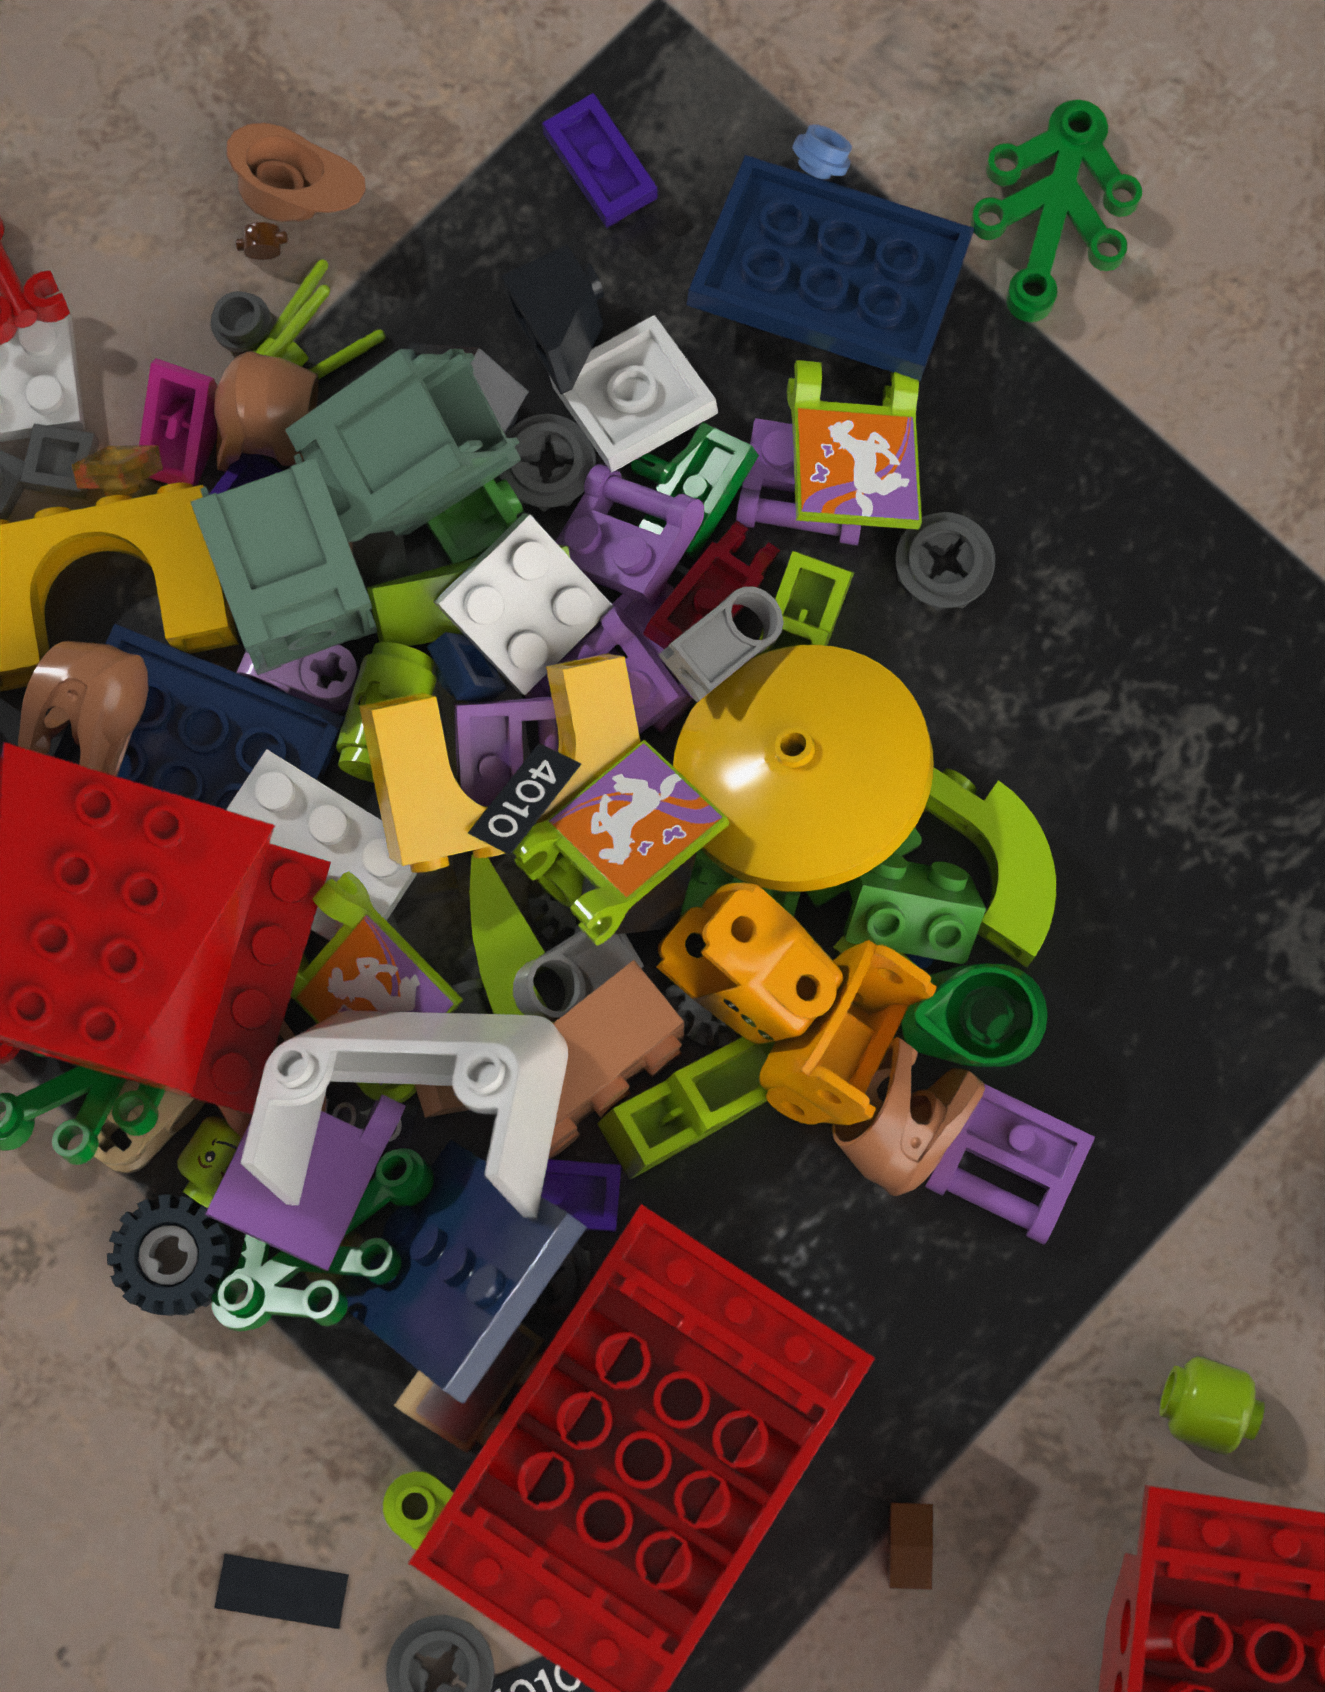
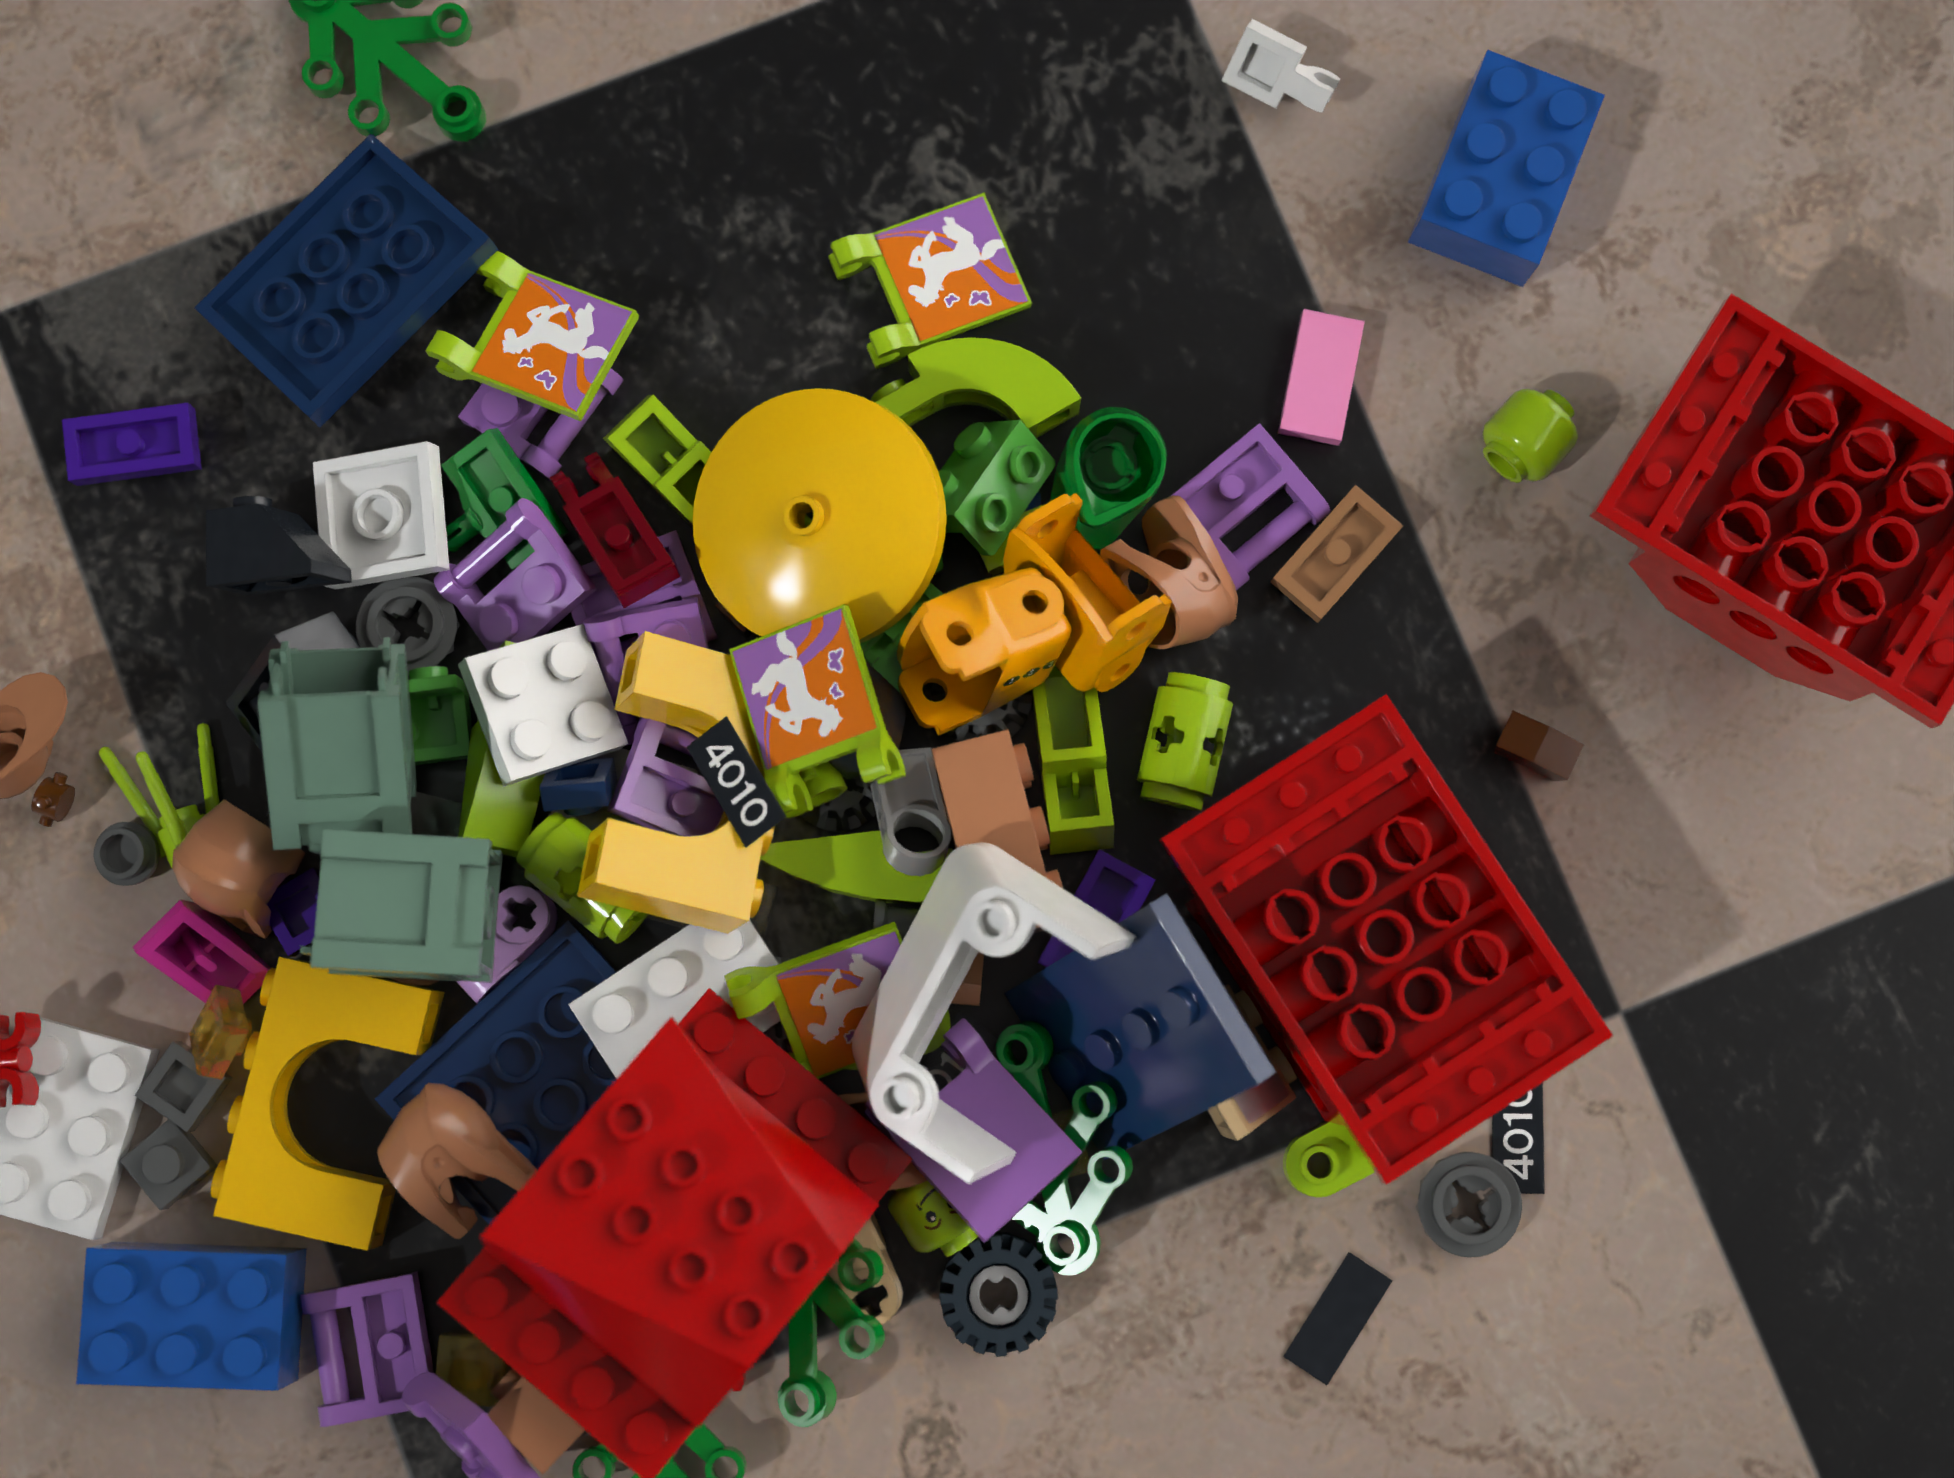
camera: 70 degrees left, 5 degrees up
(716, 647) = (673, 546): light grey piece -> none
(727, 1207) = (1188, 713): none -> lime piece
(822, 152) = (227, 235): medium blue plate -> none
(940, 534) = (689, 284): dark grey gear -> none
(1006, 1267) = (1336, 553): none -> medium nougat plate
(1092, 778) = (937, 274): none -> flag
(1171, 1178) = (1321, 377): none -> bright pink tile

